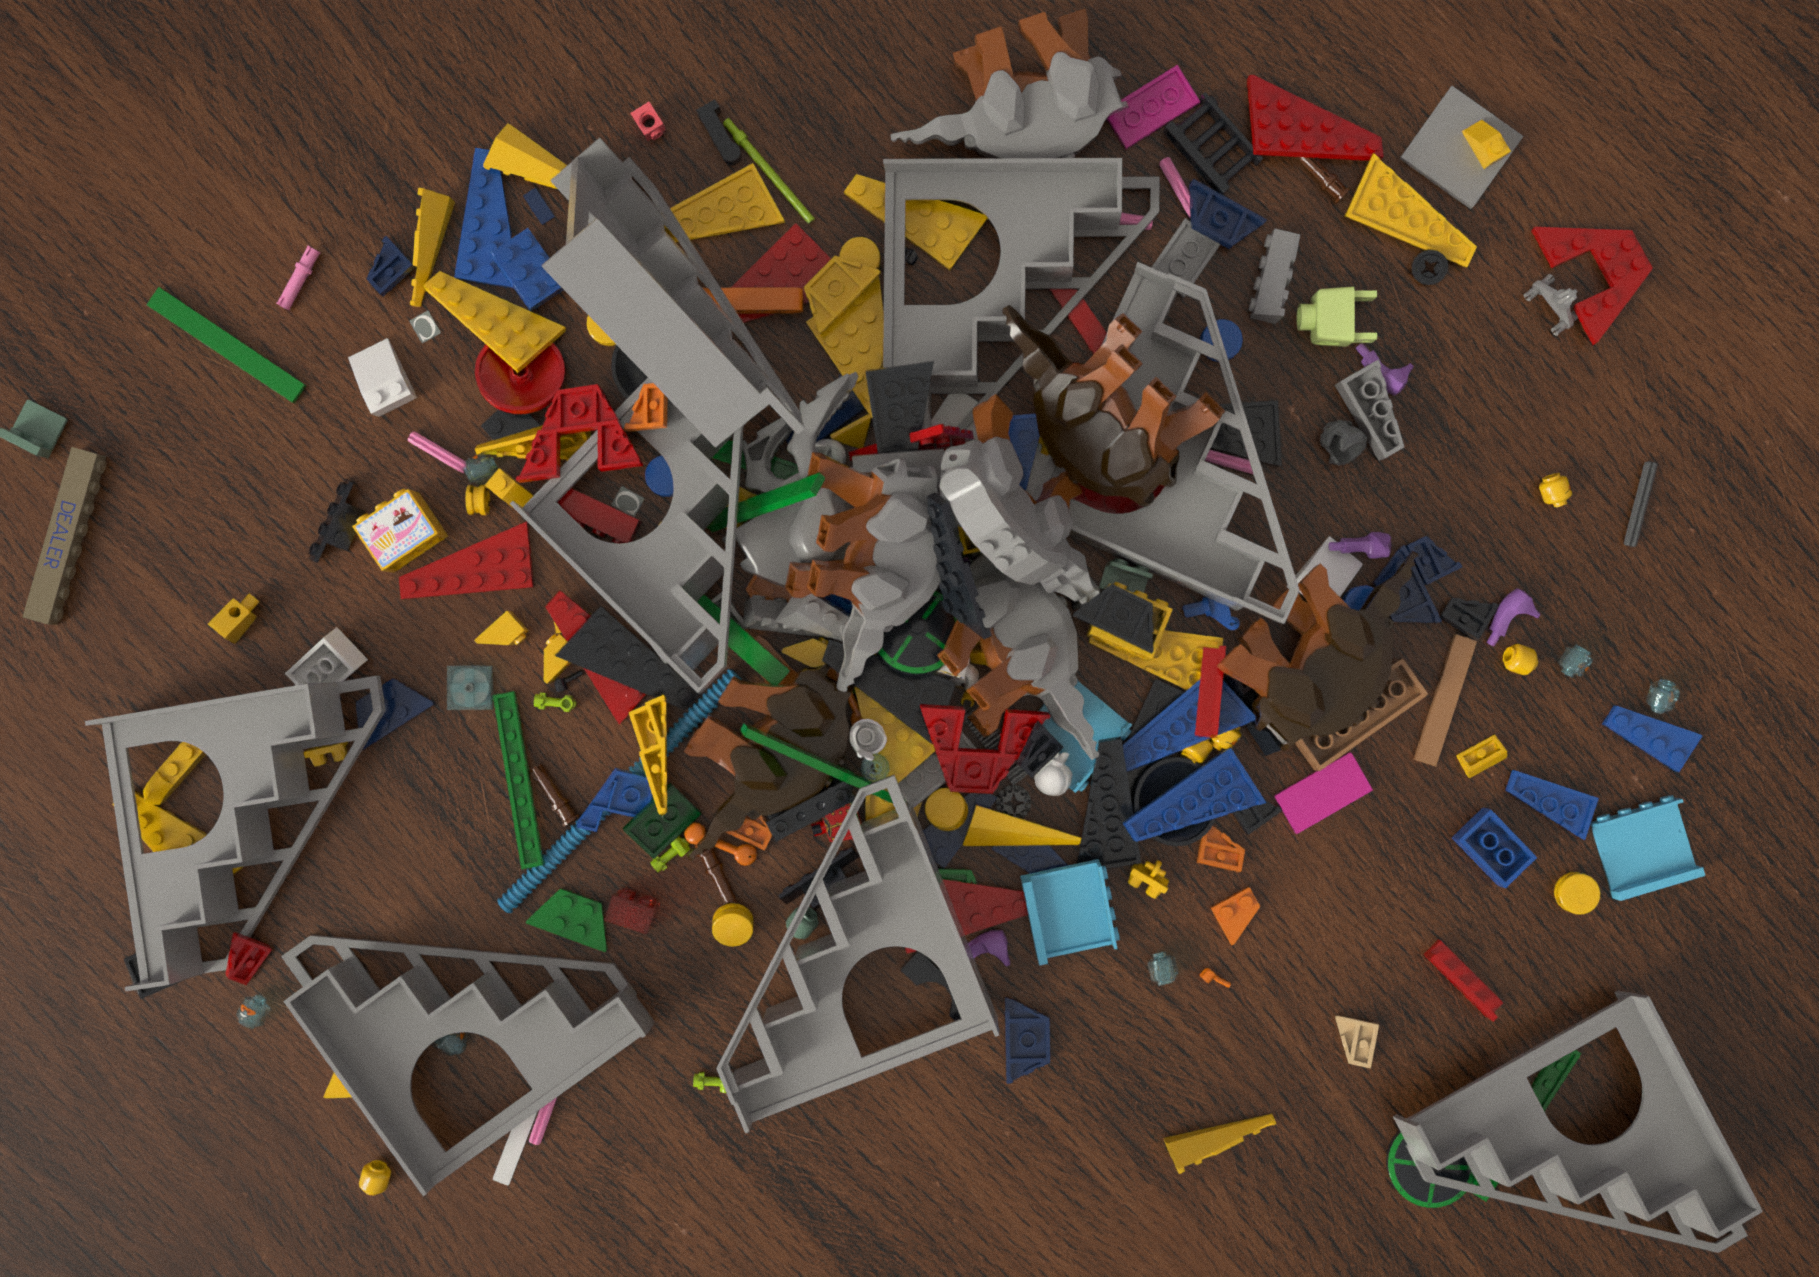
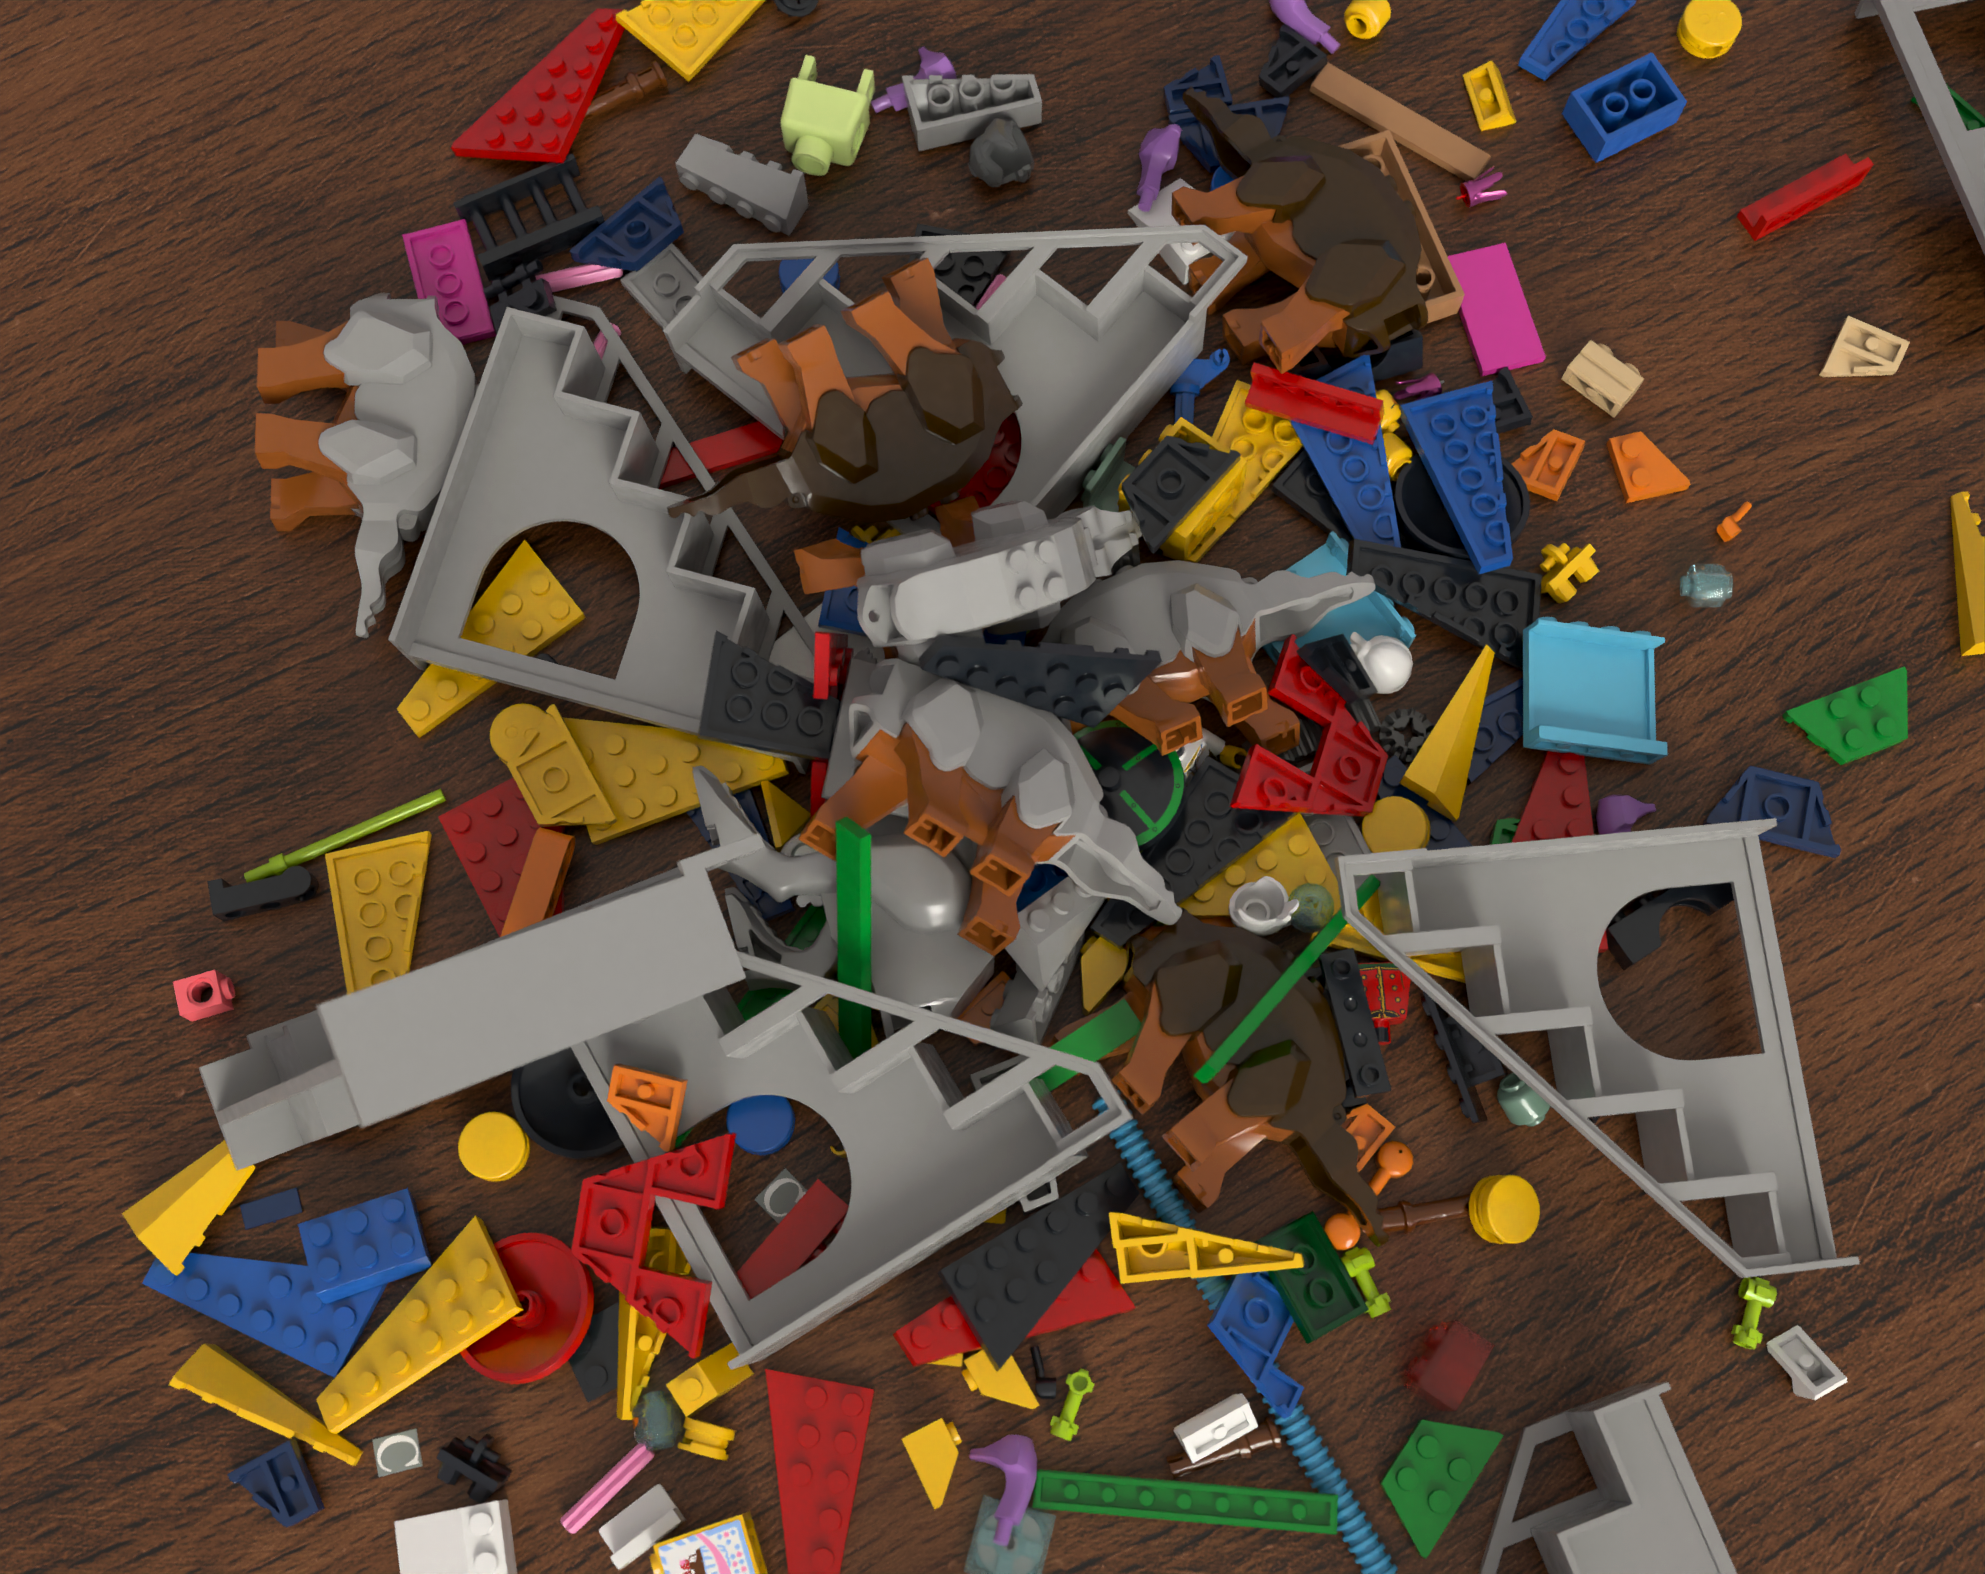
camera: 70 degrees left, 15 degrees down
(422, 478) = (641, 1526): none -> white panel
(429, 373) = (476, 1462): none -> black hips
(512, 681) = (1018, 1461): none -> medium lavender animal
(563, 786) = (1216, 1427): none -> white panel
(691, 1116) = (1806, 1363): none -> white slope
(1102, 1080) = (1857, 718): none -> green wing
(1146, 162) = (532, 298): none -> black plate
(1251, 761) = (1426, 386): none -> flat silver piece
(1291, 874) = (1603, 378): none -> tan brick
(1406, 760) = (1472, 190): none -> flat silver piece

